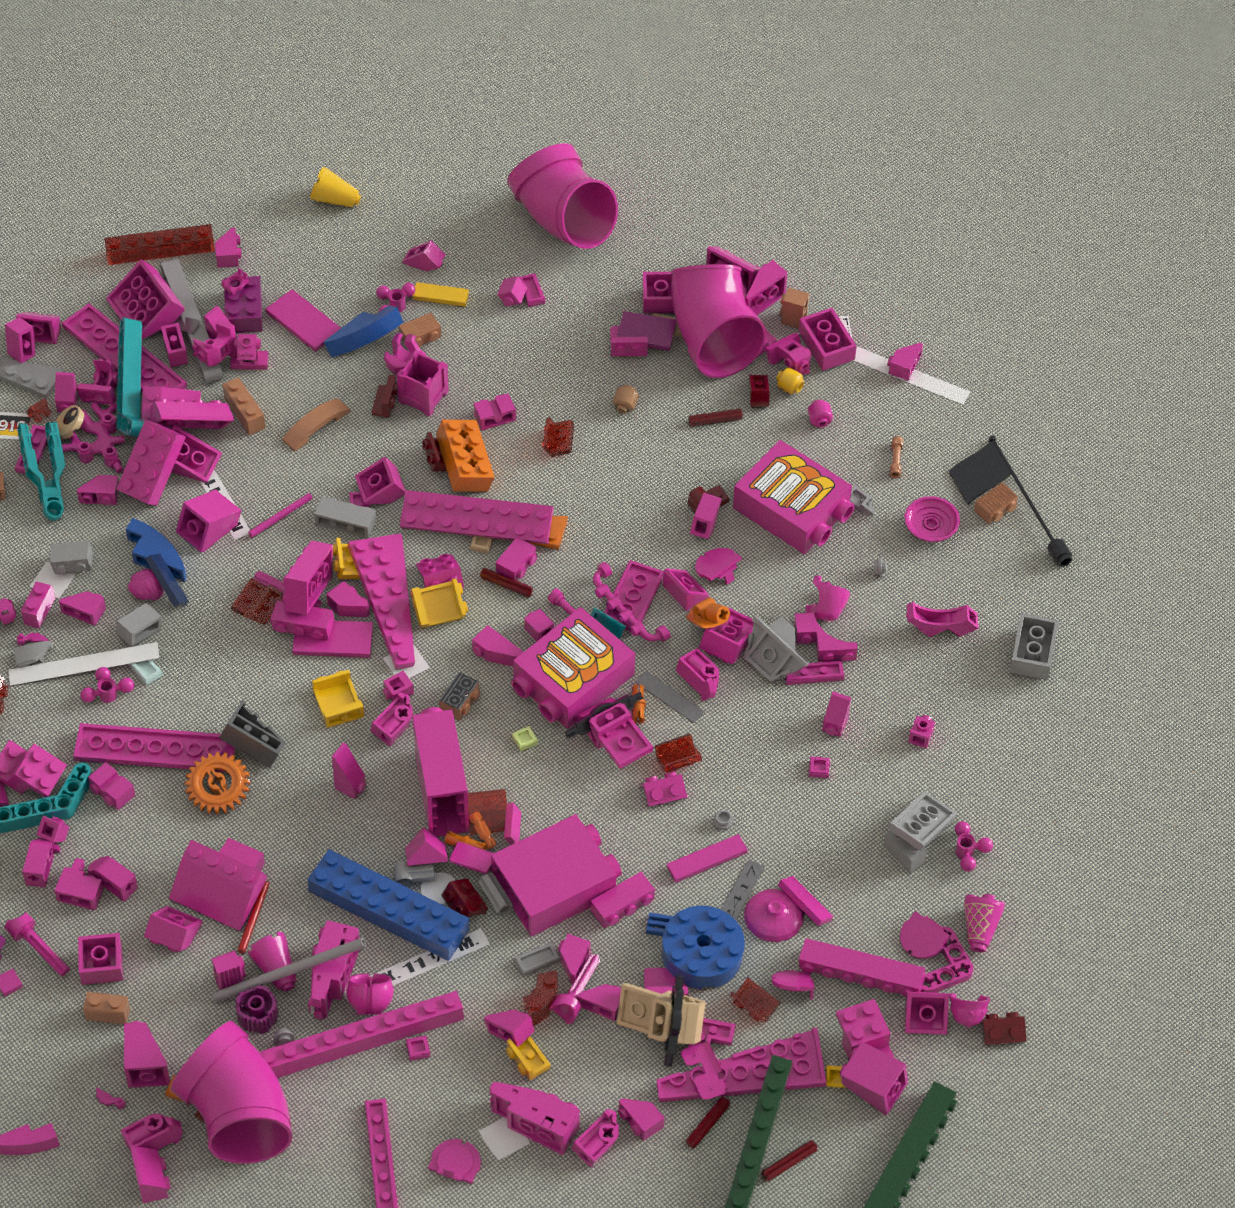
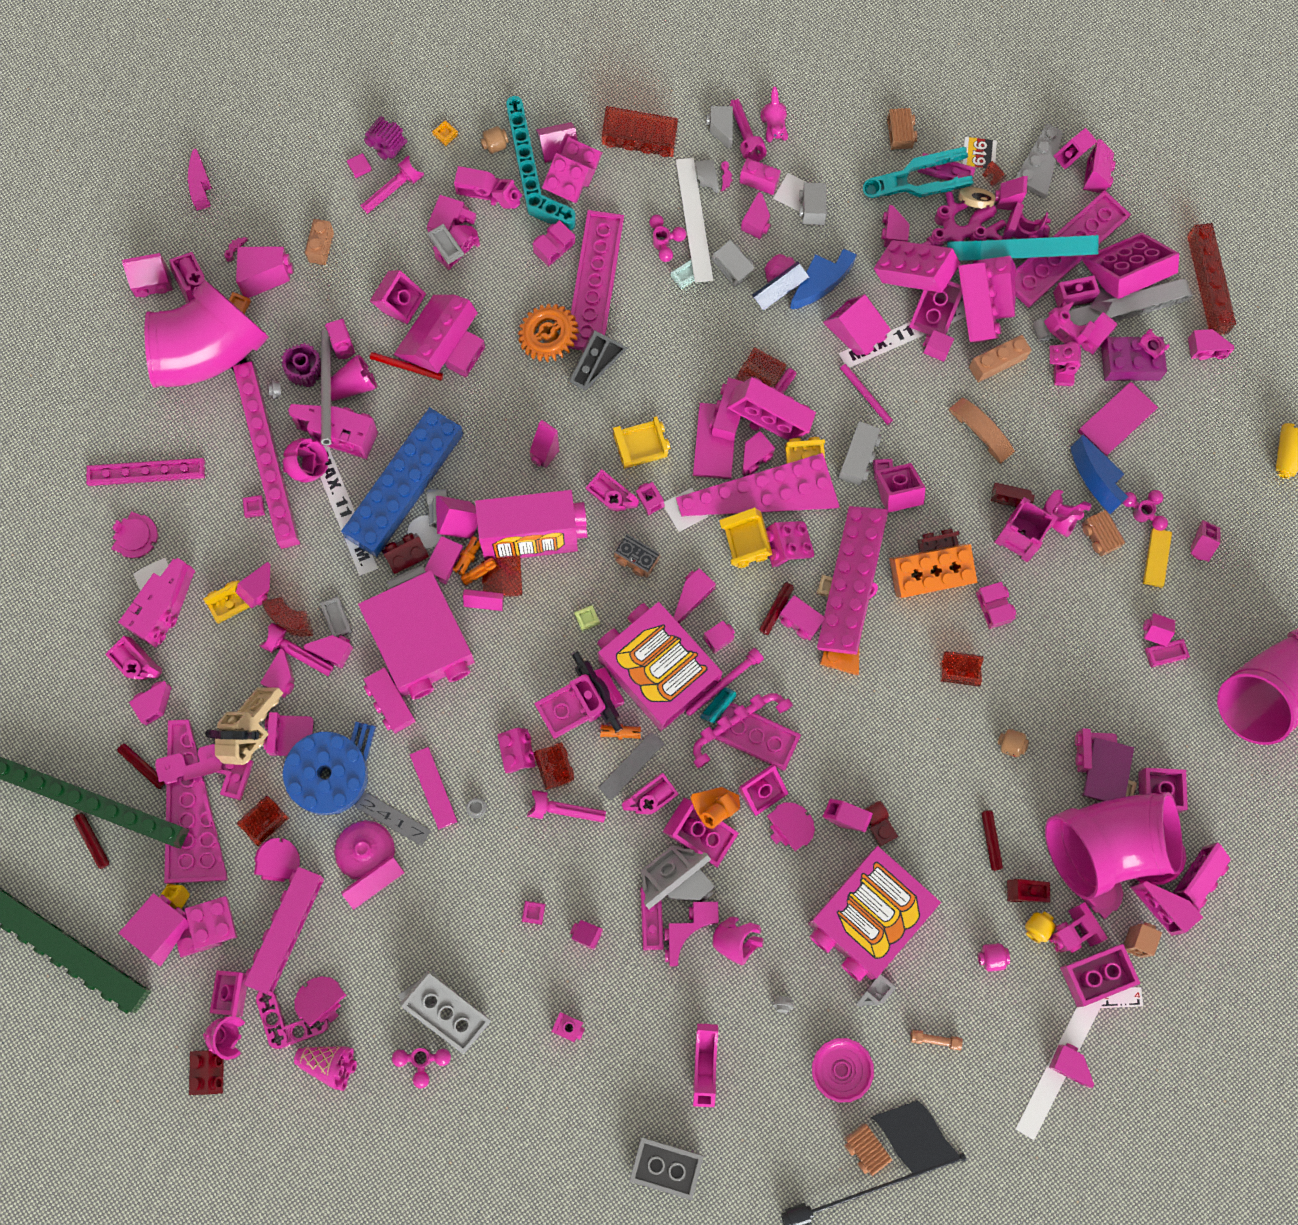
camera: 90 degrees right, 20 degrees up
(100, 958) = (368, 234): dark pink brick -> none
(118, 874) = (445, 244): none -> light grey tile
(229, 455) = (938, 345): none -> dark pink brick
(717, 761) = (542, 805): none -> dark pink piece

